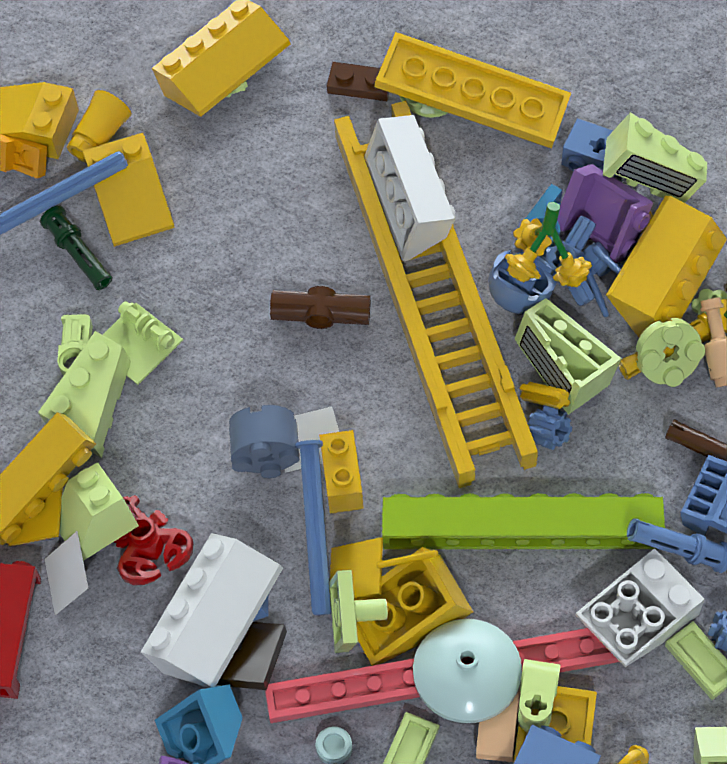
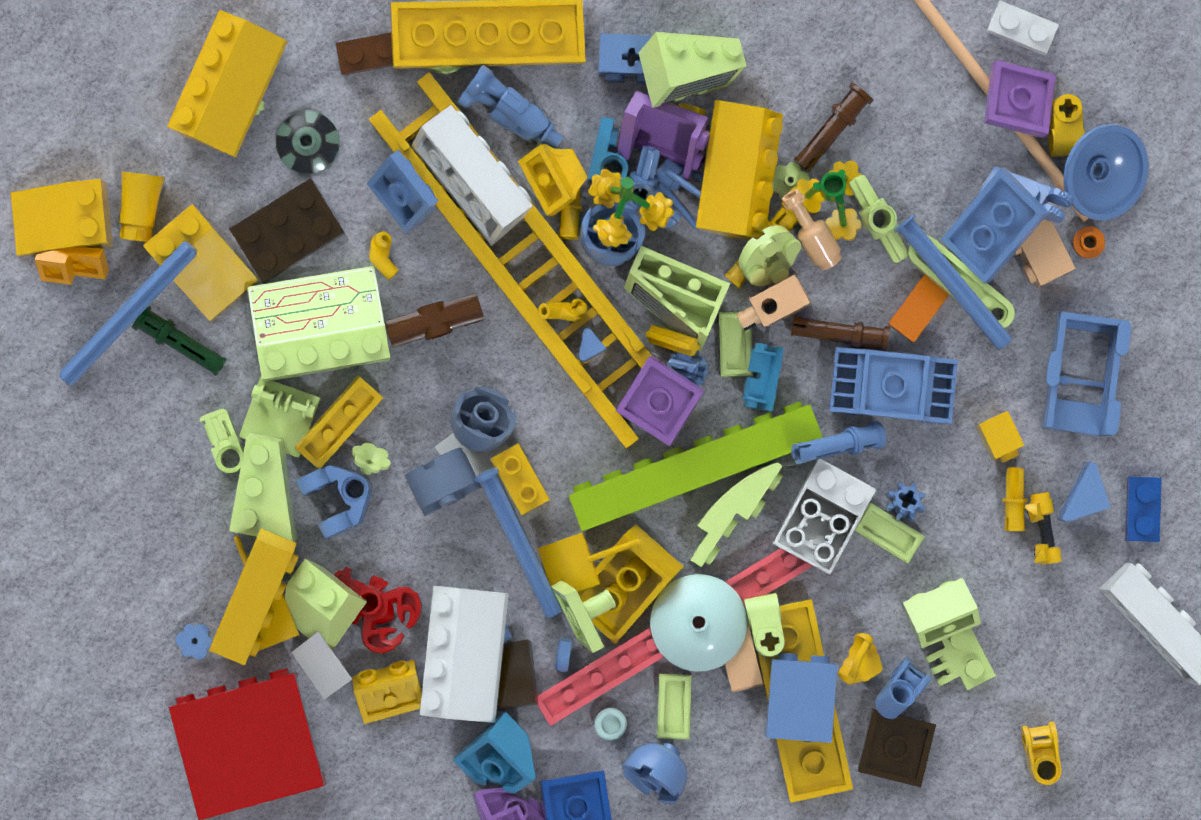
camera: 25 degrees left, 25 degrees up
(118, 626) = (387, 691): none -> yellow bracket
(141, 440) = (327, 476): none -> medium blue piece
(189, 363) = (338, 422): none -> yellow plate
(204, 405) = (370, 458): none -> yellowish green plant
(209, 277) = (318, 324): none -> yellowish green slope
(219, 194) = (287, 231): none -> dark brown plate
(275, 142) = (313, 157): none -> dish
(295, 238) = (379, 254): none -> yellow arm
(314, 654) = (563, 654): none -> medium blue tile
(326, 401) = (482, 419): none -> sand blue cylinder
(339, 183) = (403, 192): none -> medium blue plate
(446, 334) = (563, 310): none -> yellow arm
(460, 371) = (590, 346): none -> medium blue slope
(466, 154) = (509, 109): none -> medium blue piece
(484, 220) = (553, 176): none -> yellow slope
(496, 245) = (570, 219): none -> yellow axle
(510, 437) = (660, 400): none -> medium lavender plate
(554, 568) = (741, 499): none -> yellowish green slope
(606, 428) = (734, 346): none -> yellowish green tile
(616, 473) = (761, 391): none -> dark azure hinge
(663, 396) = (789, 298): none -> light nougat torso

